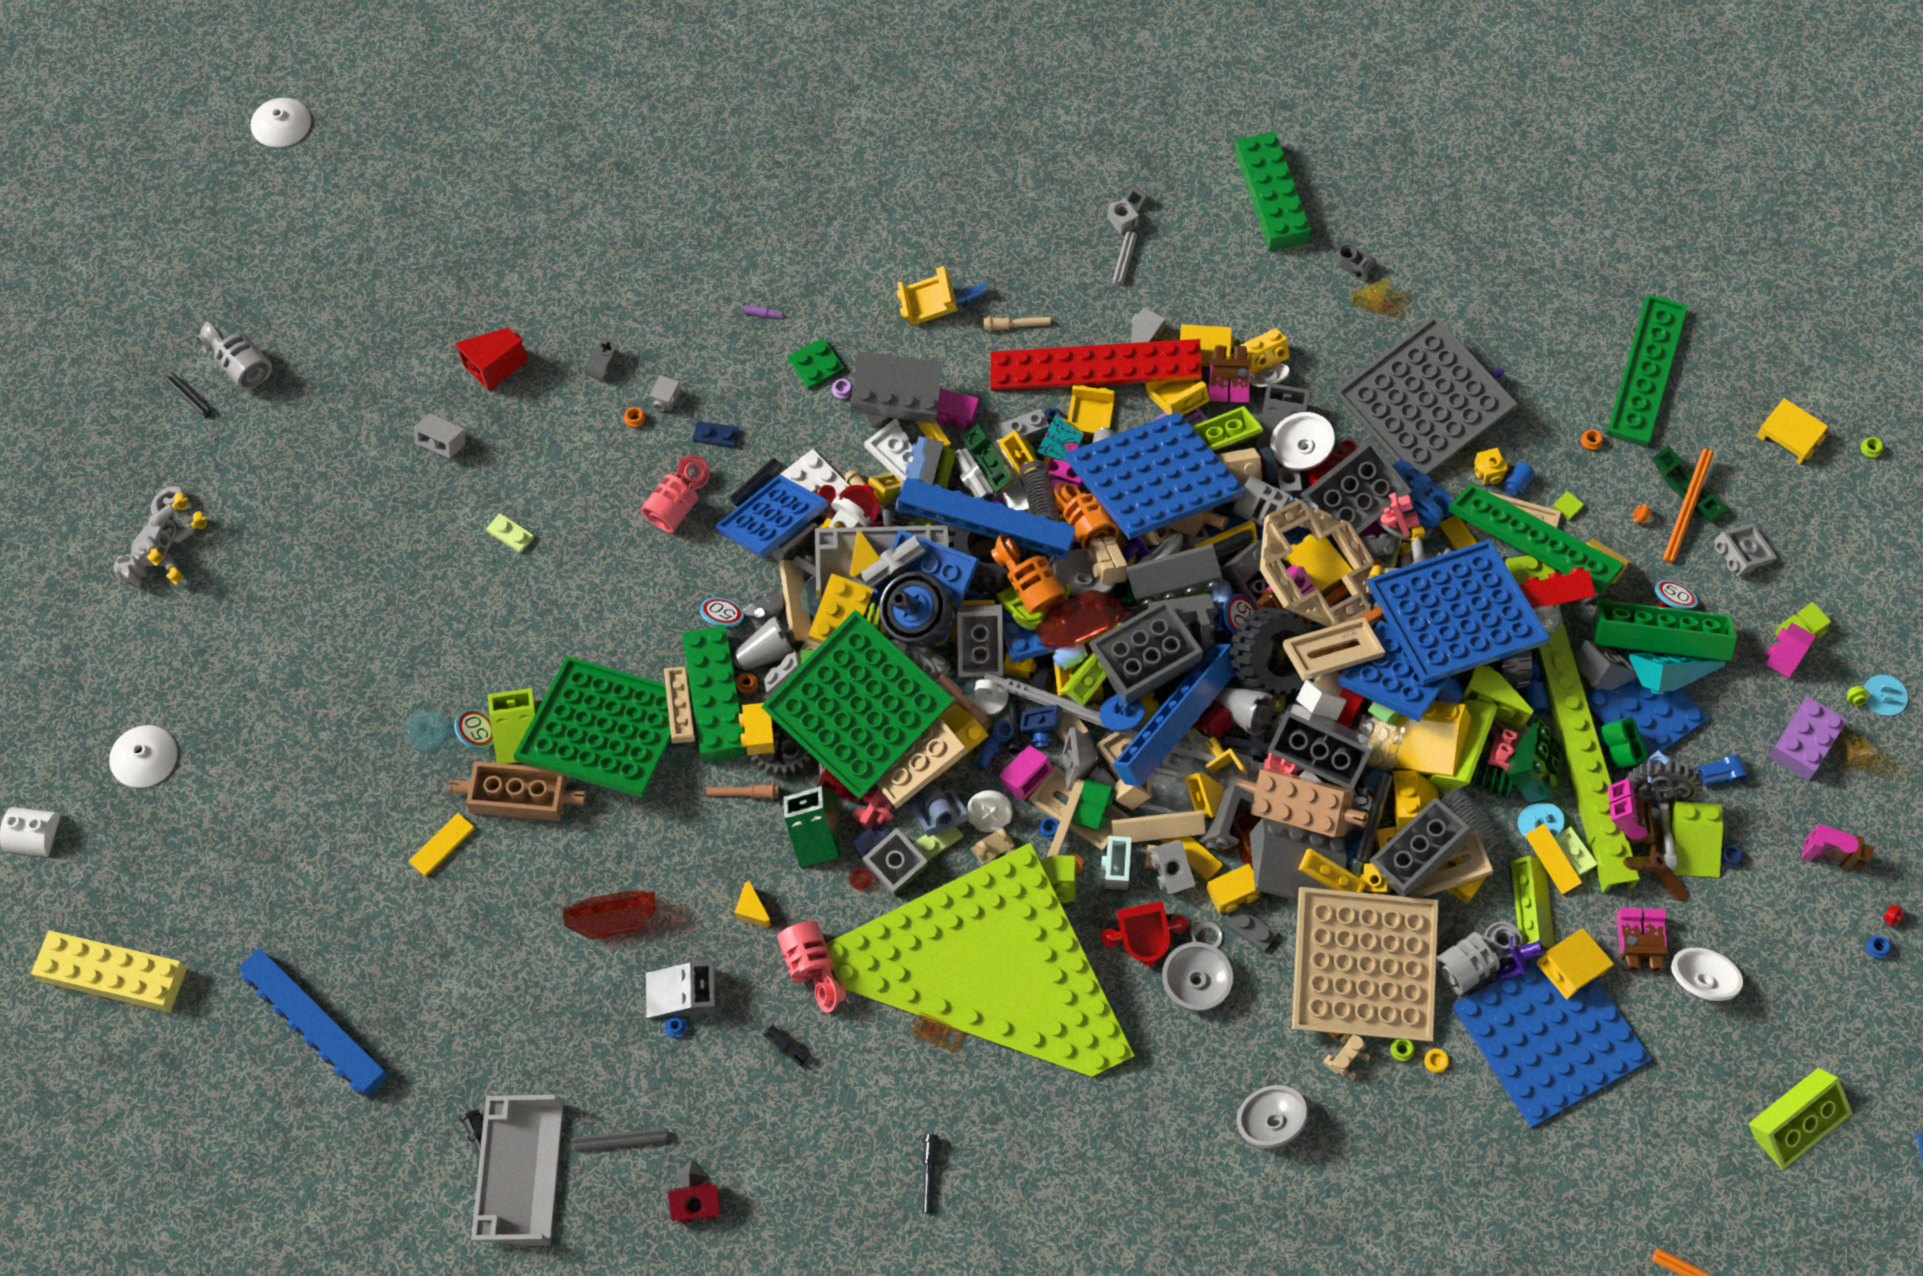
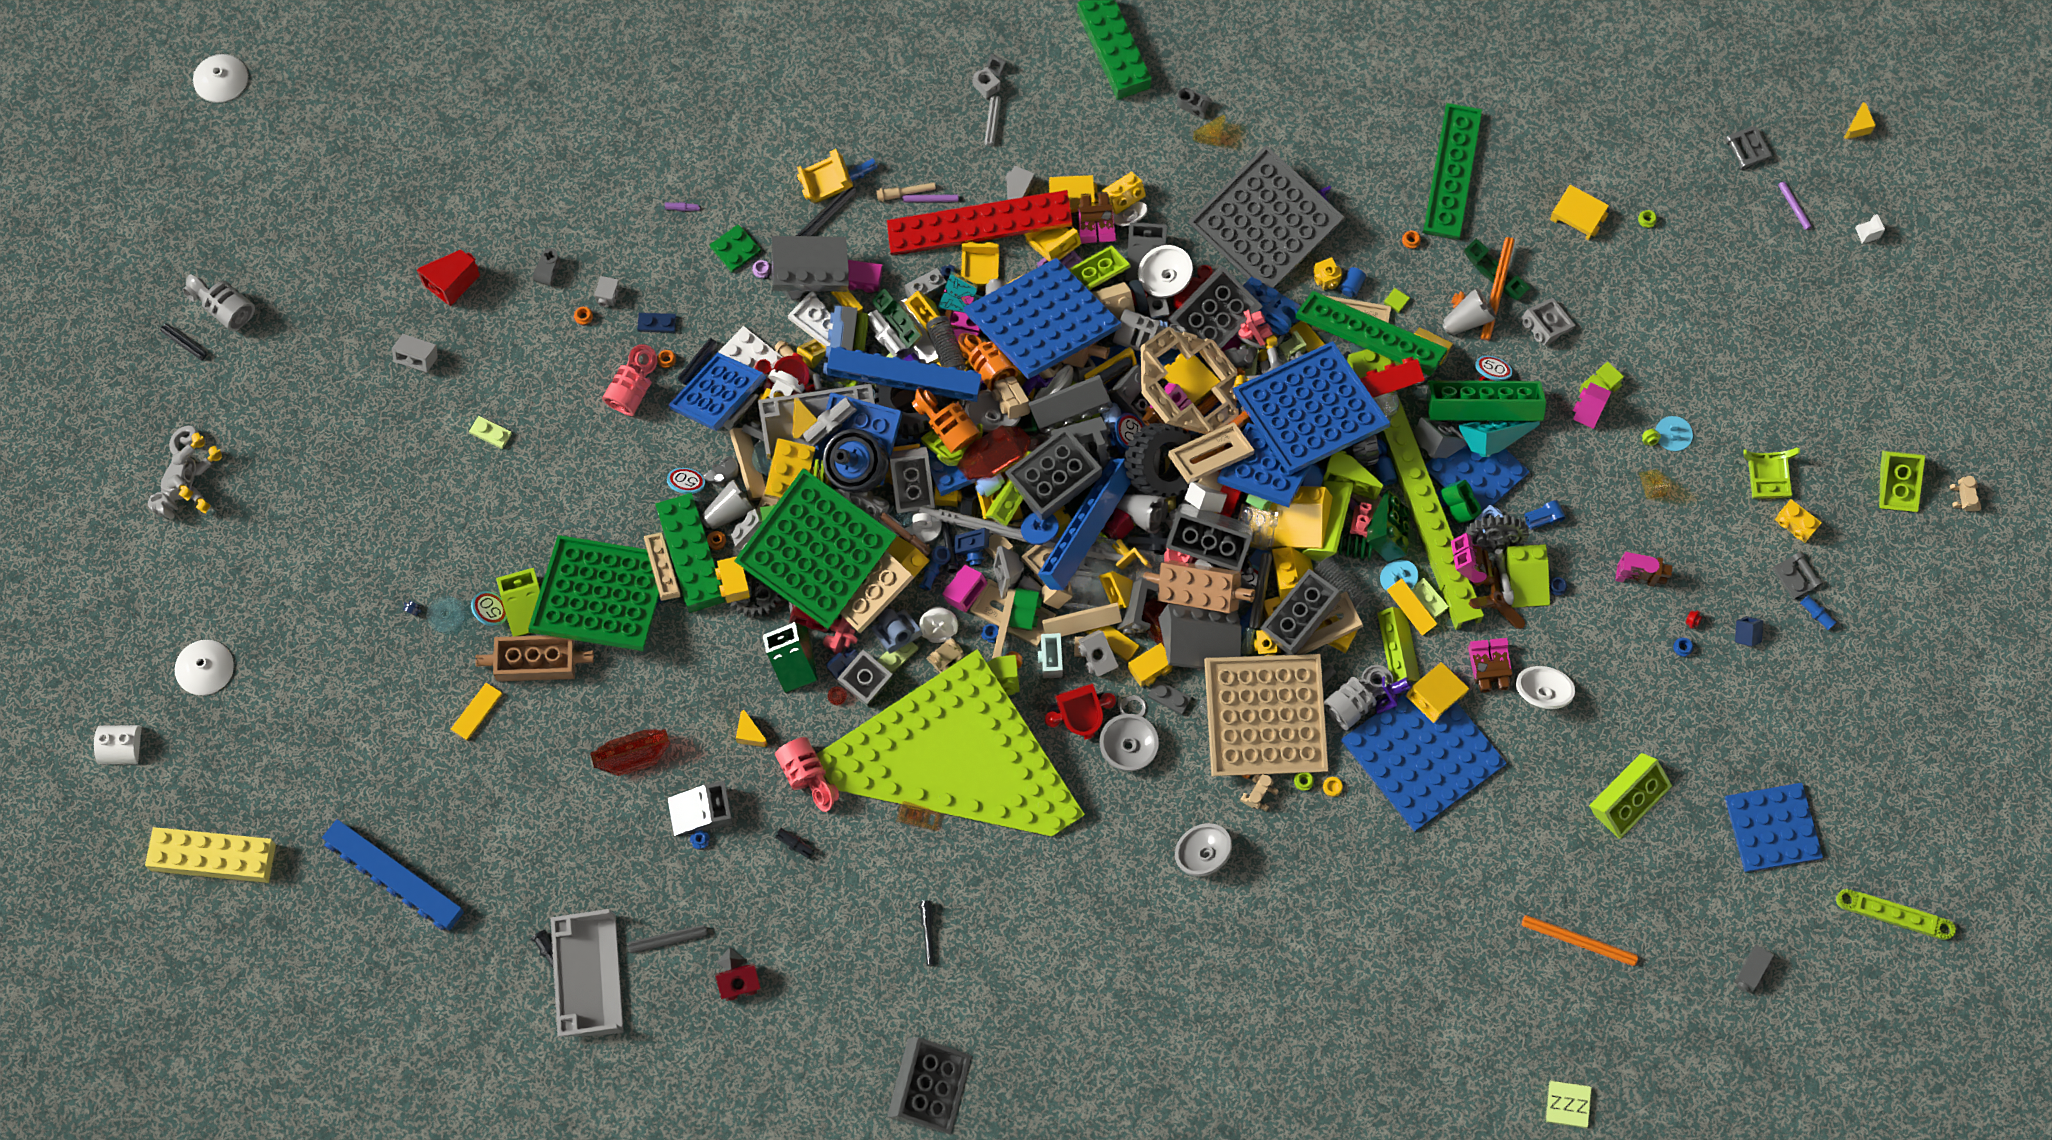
camera: 10 degrees left, 5 degrees up
(388, 718) = (412, 608): none -> dark blue plate
(720, 469) = (666, 353): none -> orange plate
(755, 791) = (737, 632): nougat pin -> none
(927, 334) = (827, 212): none -> black axle
(1043, 334) = (930, 198): none -> medium lavender bar
(1330, 873) = (1229, 643): yellow tile -> none
(1442, 542) = (1293, 345): none -> yellowish green panel
(1652, 529) = (1469, 313): none -> light grey cone
(1807, 738) = (1612, 478): medium lavender brick -> none

